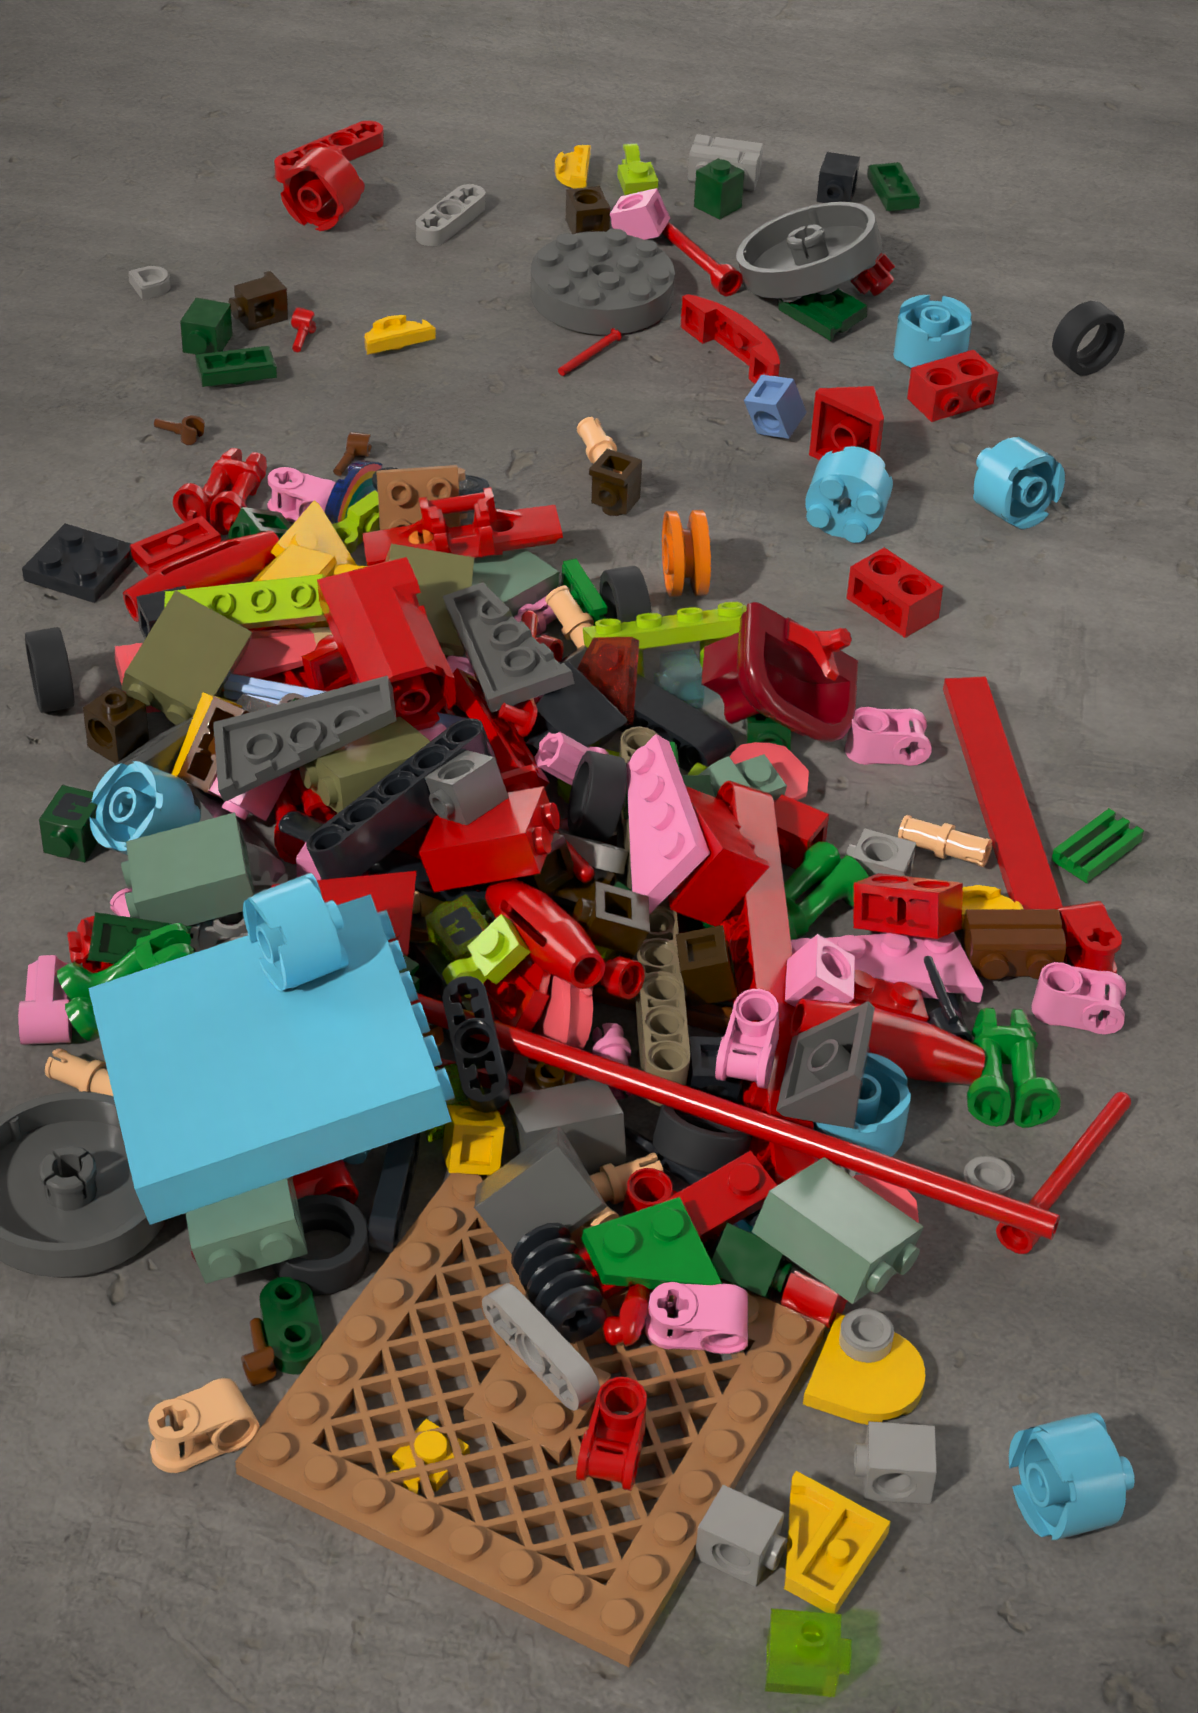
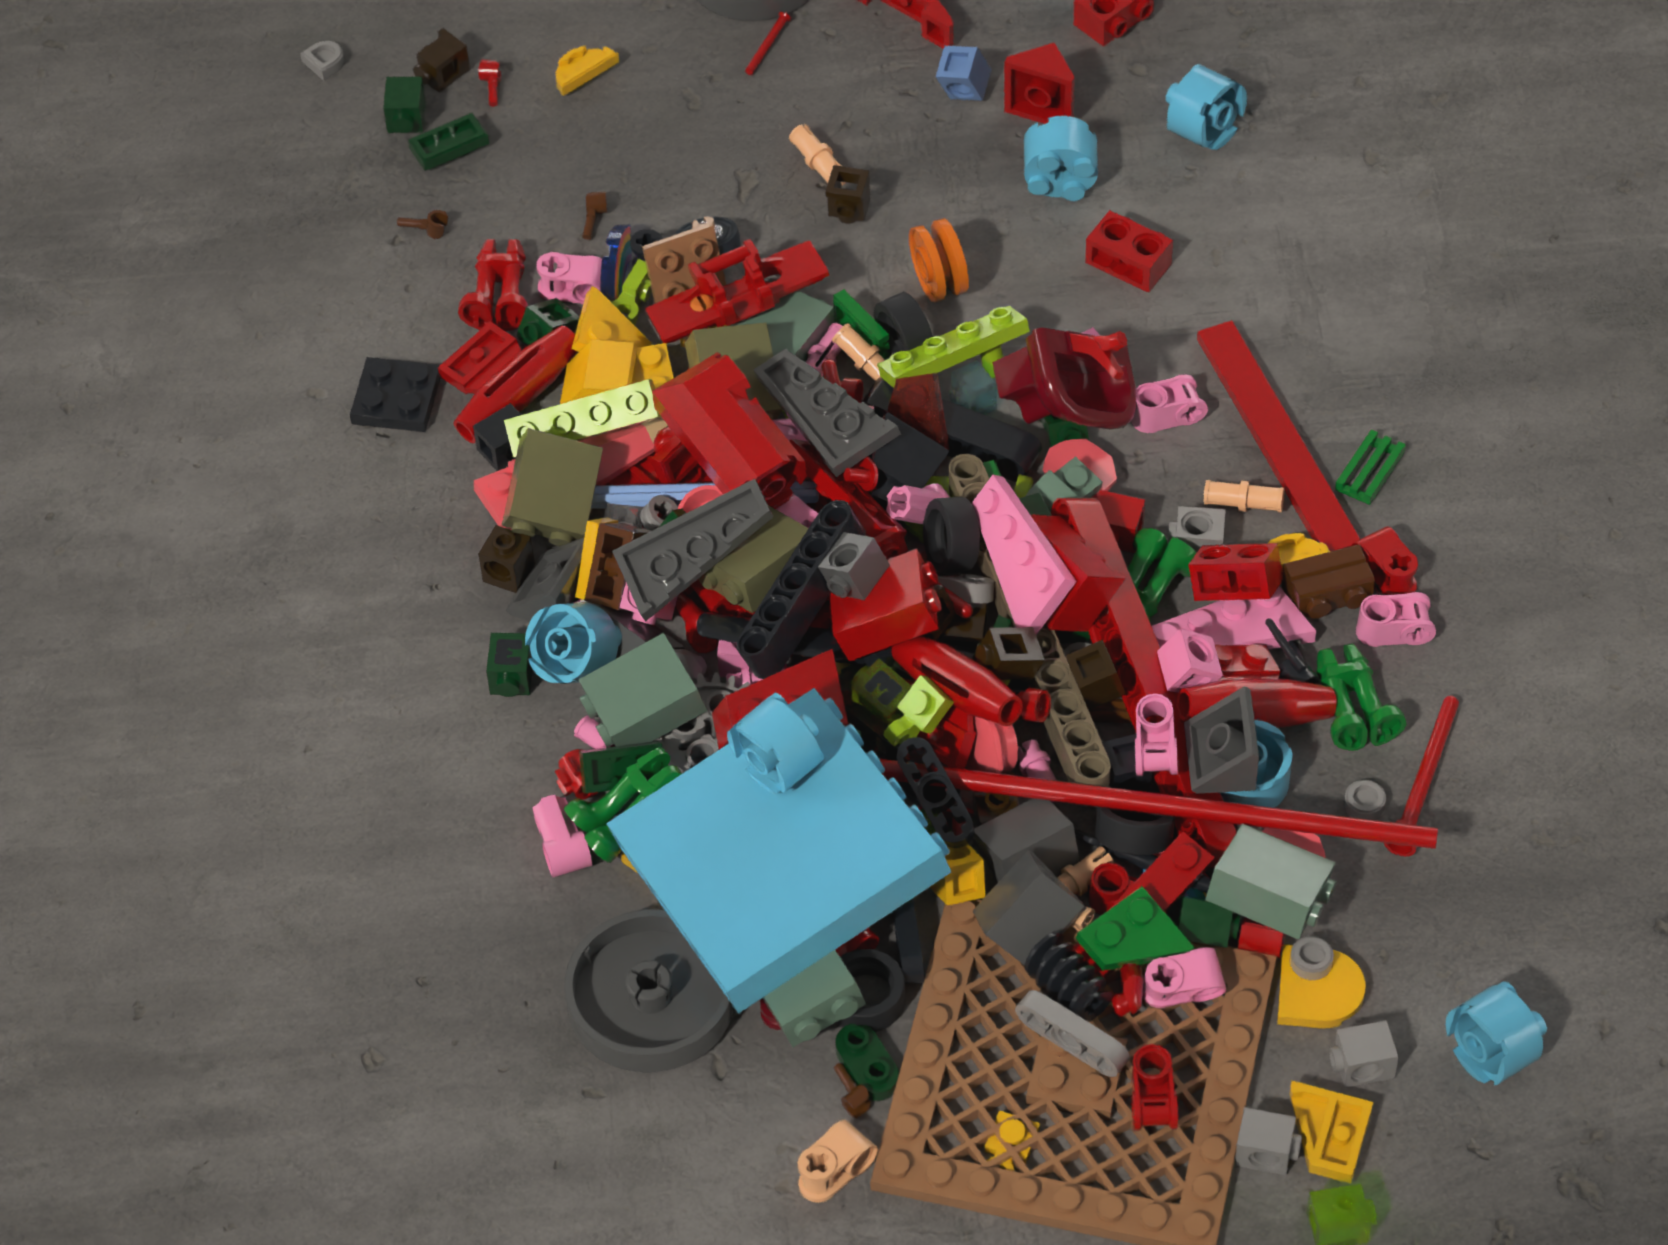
camera: 10 degrees left, 10 degrees up
(49, 669) = (429, 520): black tyre -> none
(79, 1072) = (624, 894): light nougat pin -> none

